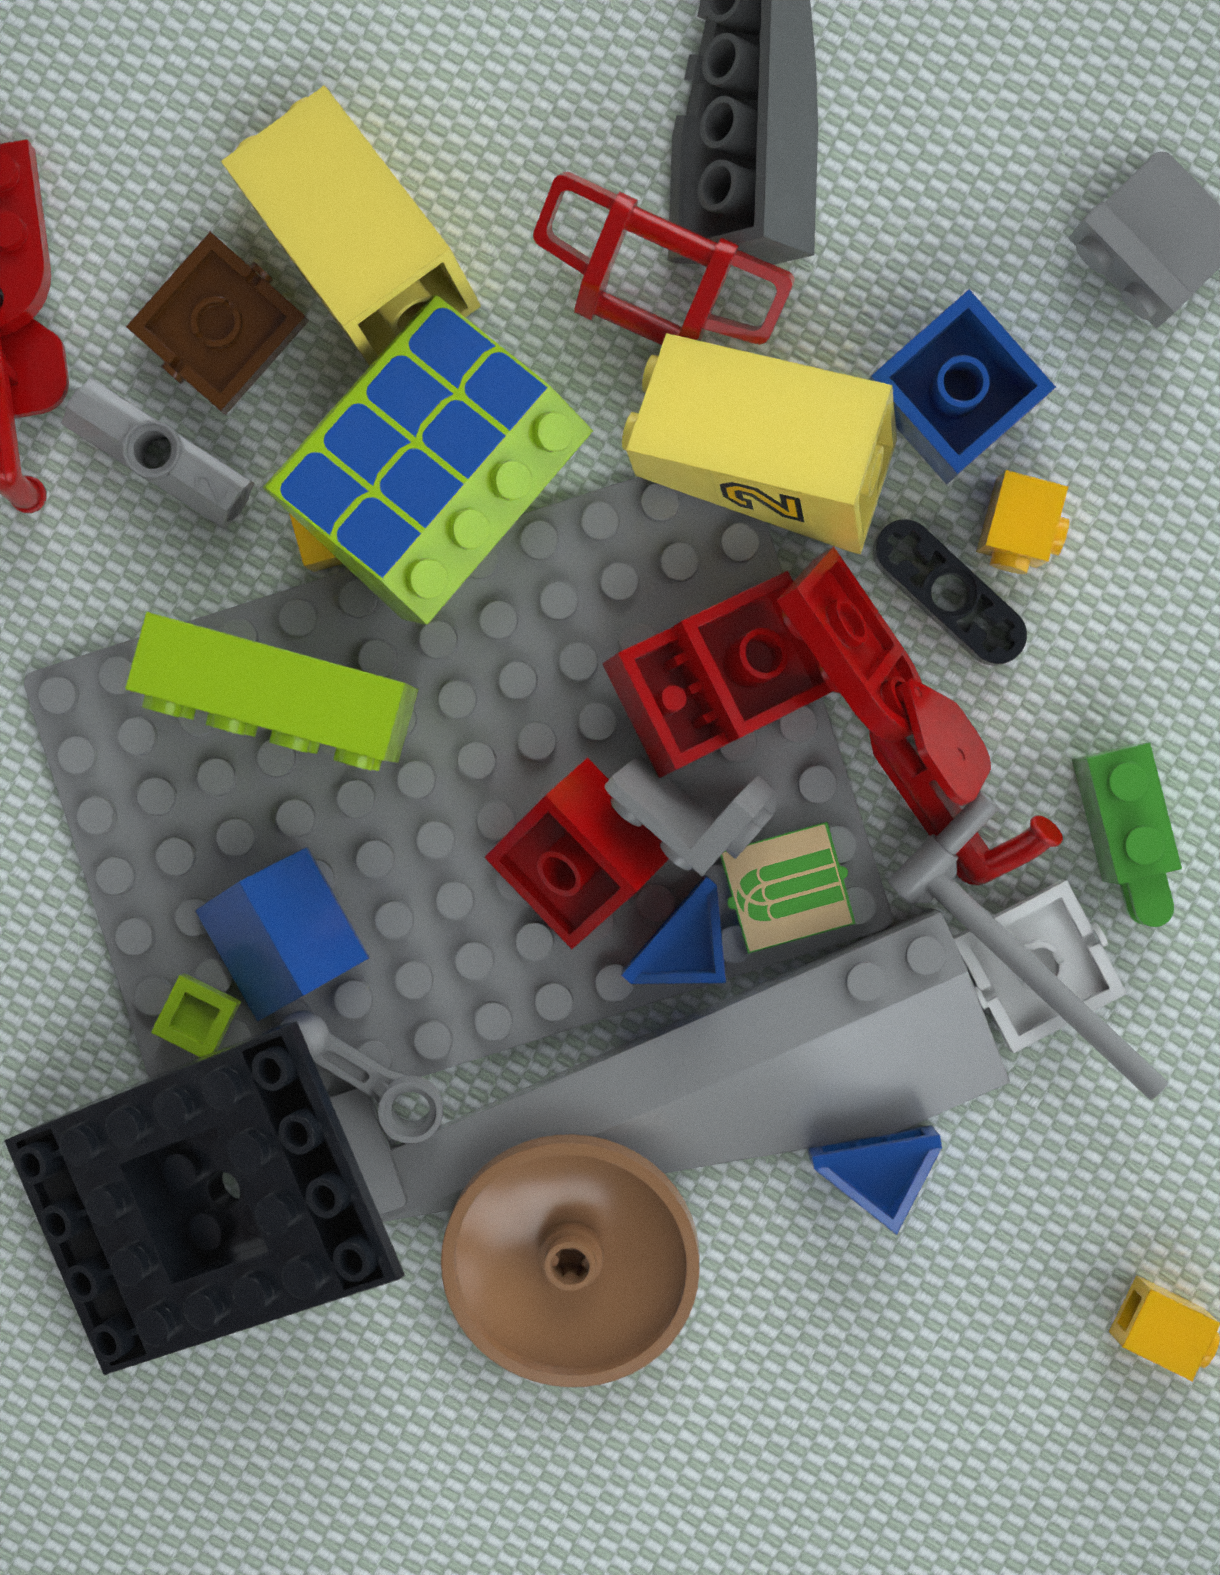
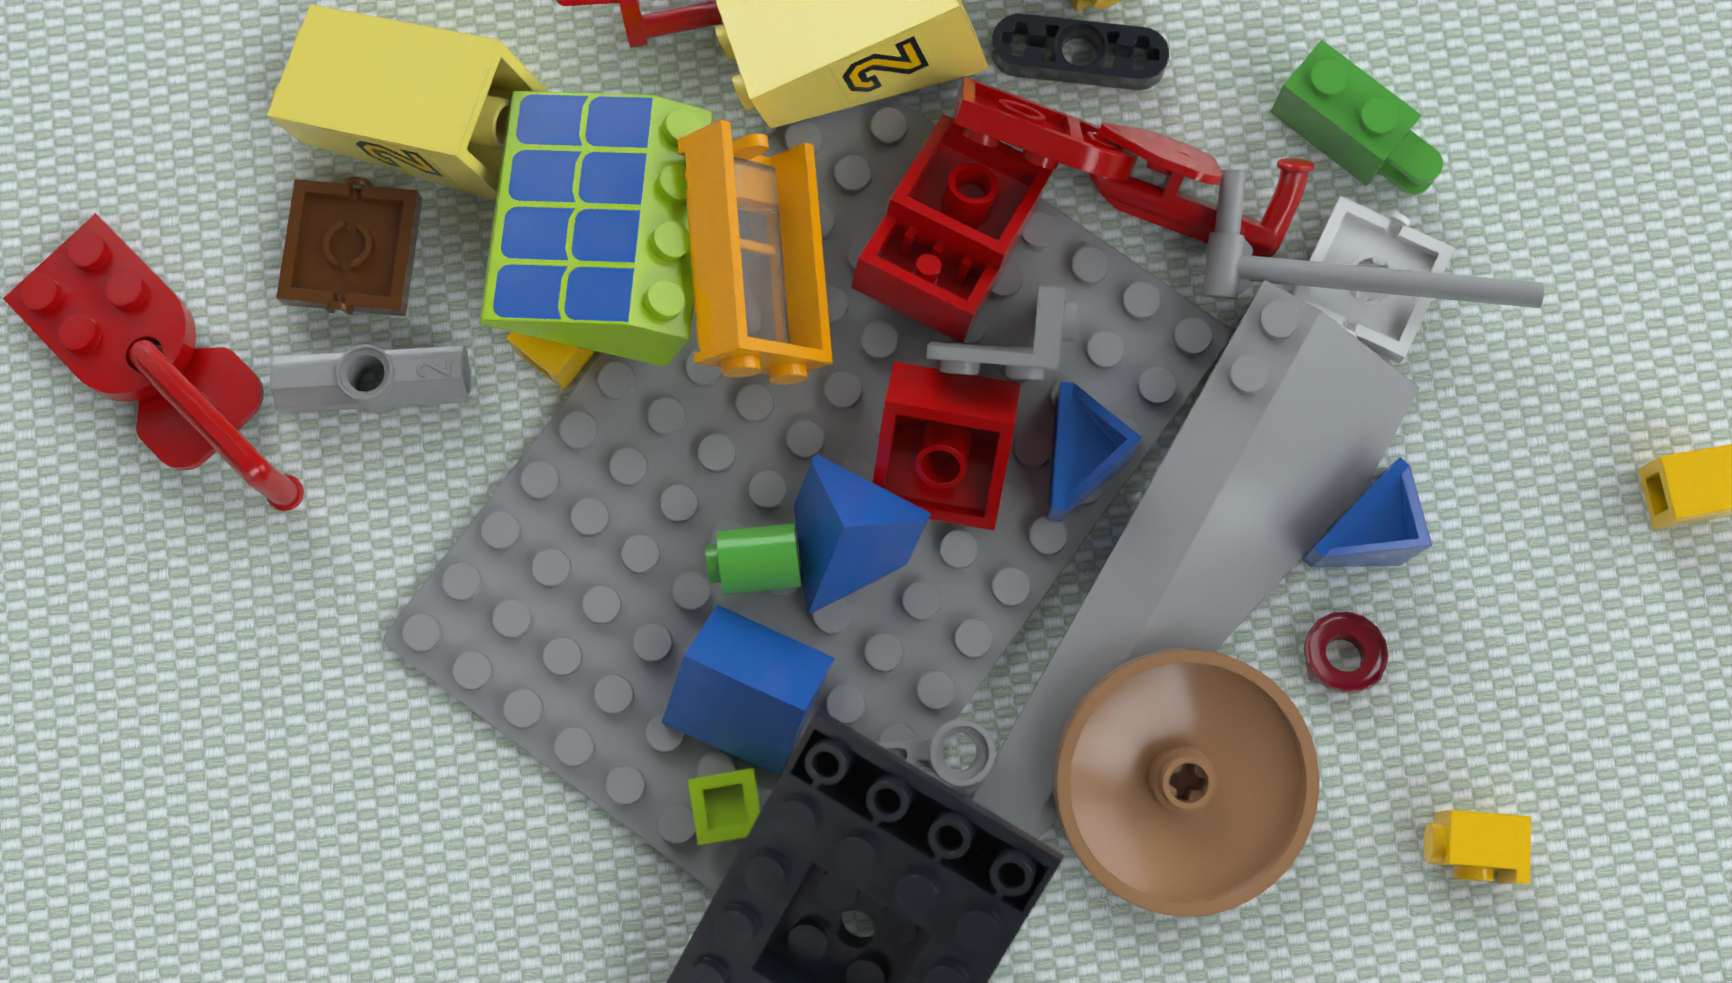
camera: 35 degrees left, 10 degrees down
(272, 688) = (599, 484): lime brick -> none
(359, 836) = (754, 559): none -> bright green brick
(451, 868) = (850, 532): none -> blue slope
(536, 587) = (756, 256): none -> light orange door
(767, 1474) = (1480, 844): none -> yellow brick
(788, 888) = (1129, 357): piece -> none
(806, 1256) = (1361, 634): none -> dark red piece

